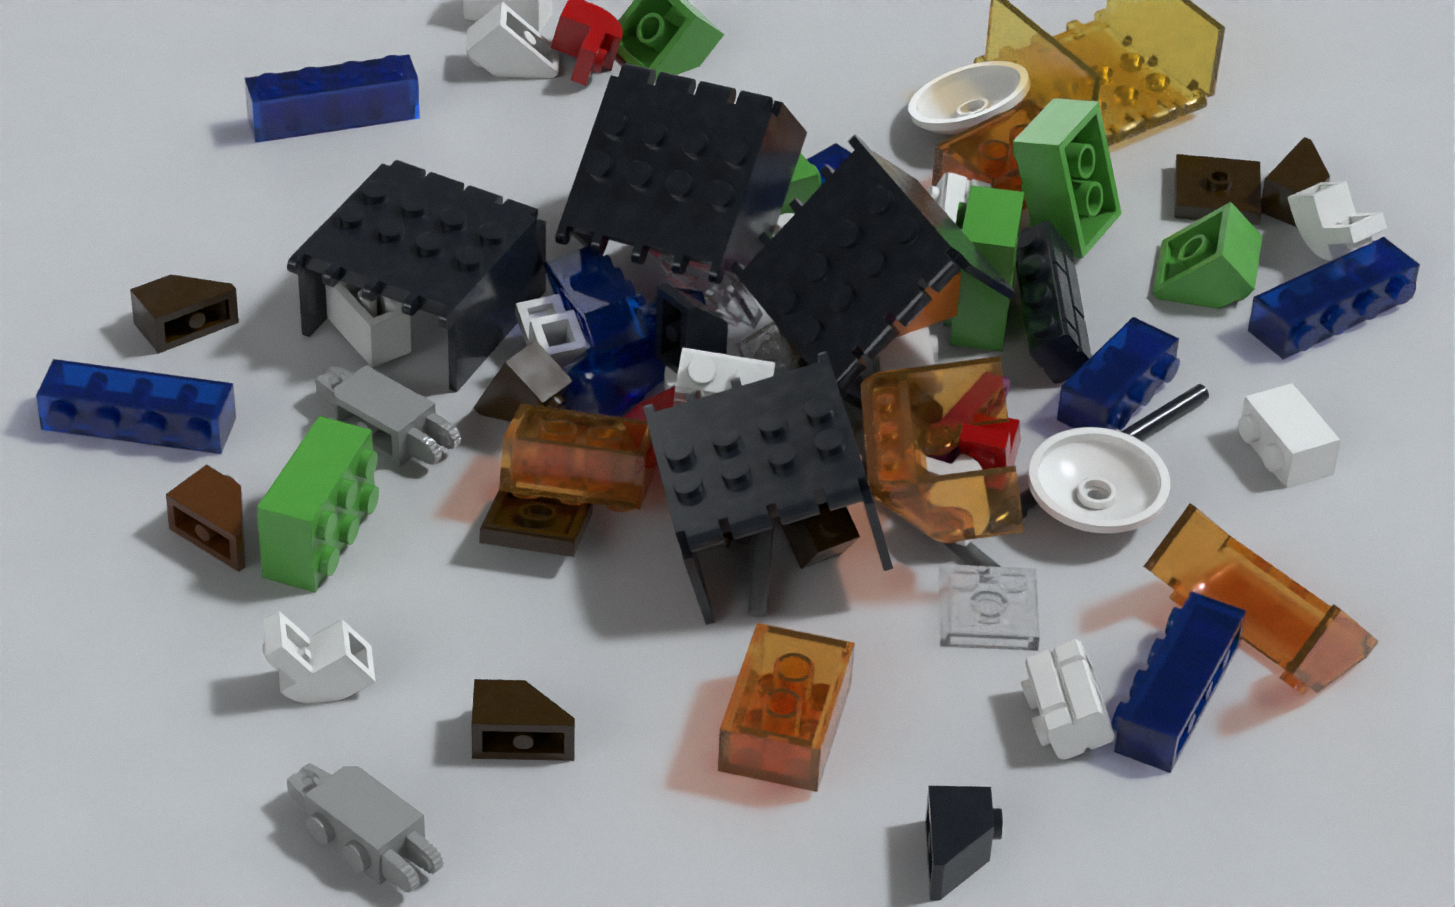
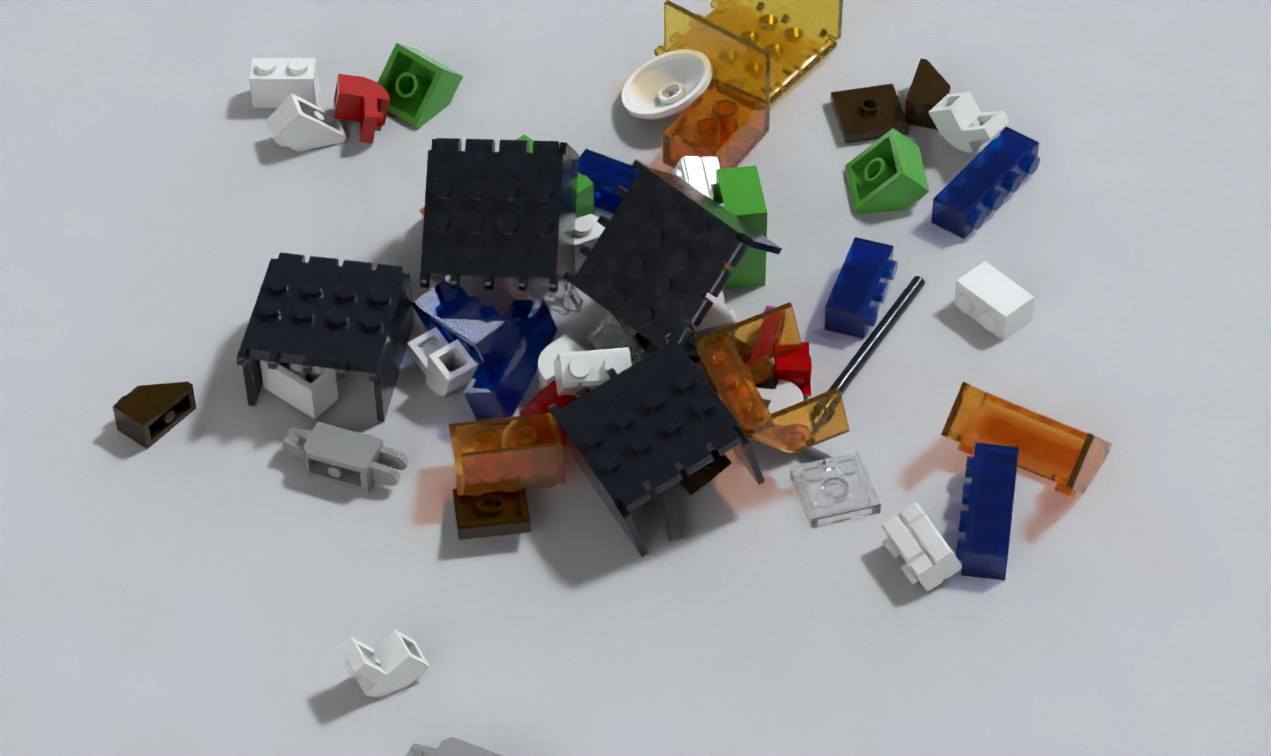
camera: 15 degrees left, 5 degrees up
(136, 406) = (156, 498): clear blue brick -> none
(210, 515) = (253, 571): reddish brown slope -> none
(317, 504) = (333, 542): bright green brick -> none
(332, 98) = (188, 204): clear blue brick -> none
(519, 723) = (546, 670): dark brown slope -> none
(527, 379) = (444, 404): dark brown slope -> none
(685, 324) = (549, 335): black slope -> none
(786, 707) = (731, 607): clear orange brick -> none
(958, 834) = (883, 668): black slope -> none
(1051, 302) = (799, 254): black brick -> none
(1068, 172) = (770, 136): bright green brick -> none
(1099, 480) = (879, 372): white dish -> none

